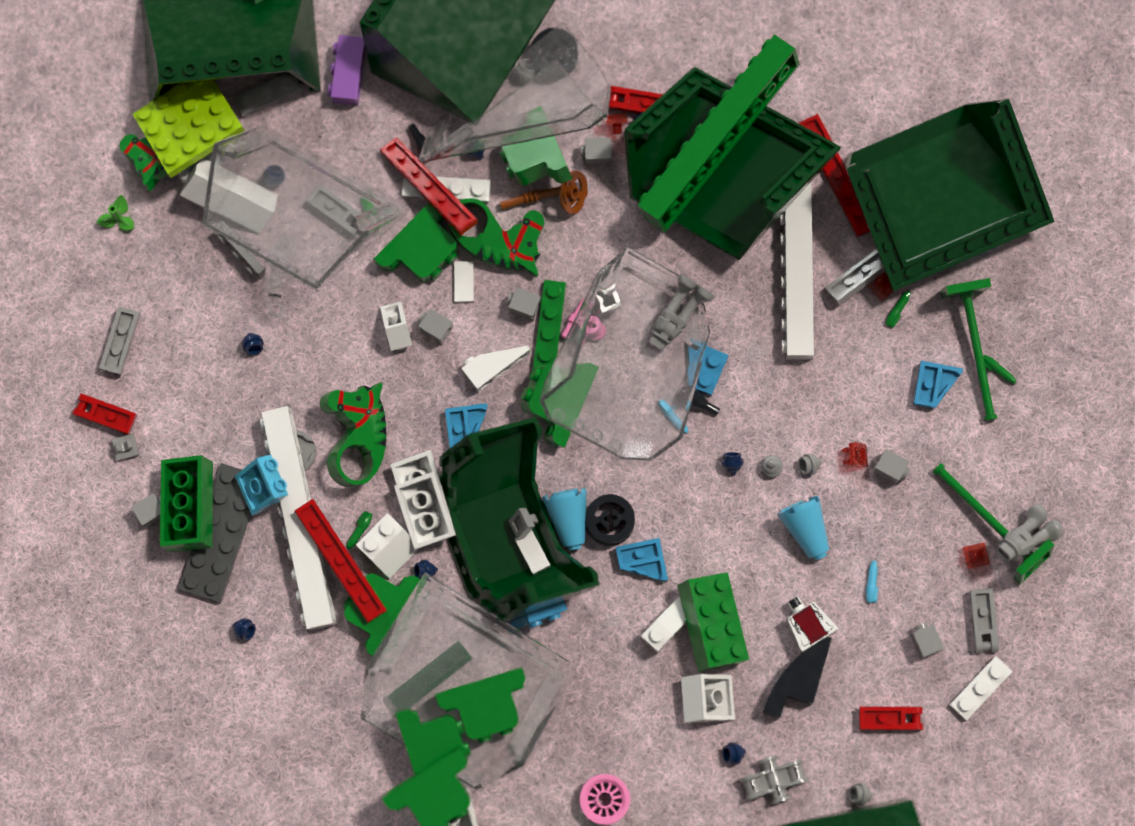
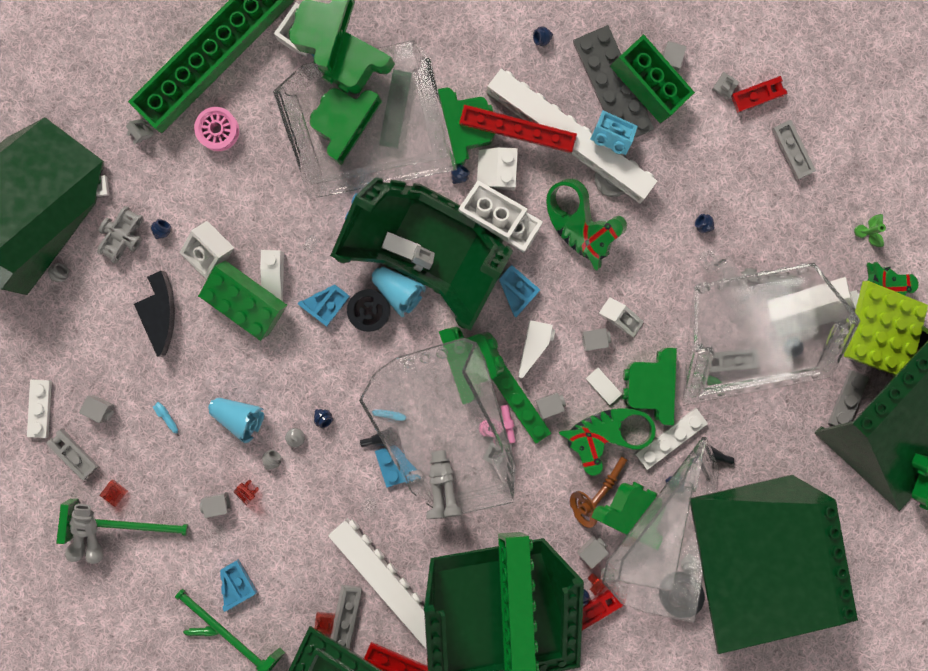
camera: 135 degrees right, 10 degrees up
(347, 70) = (810, 461): medium lavender brick -> none
(363, 523) = (526, 169): green piece -> none
(428, 186) = (683, 428): red tile -> none
(808, 624) = (181, 353): torso -> none
(889, 718) = (80, 338): red plate -> none
(894, 314) = (301, 610): green piece -> none

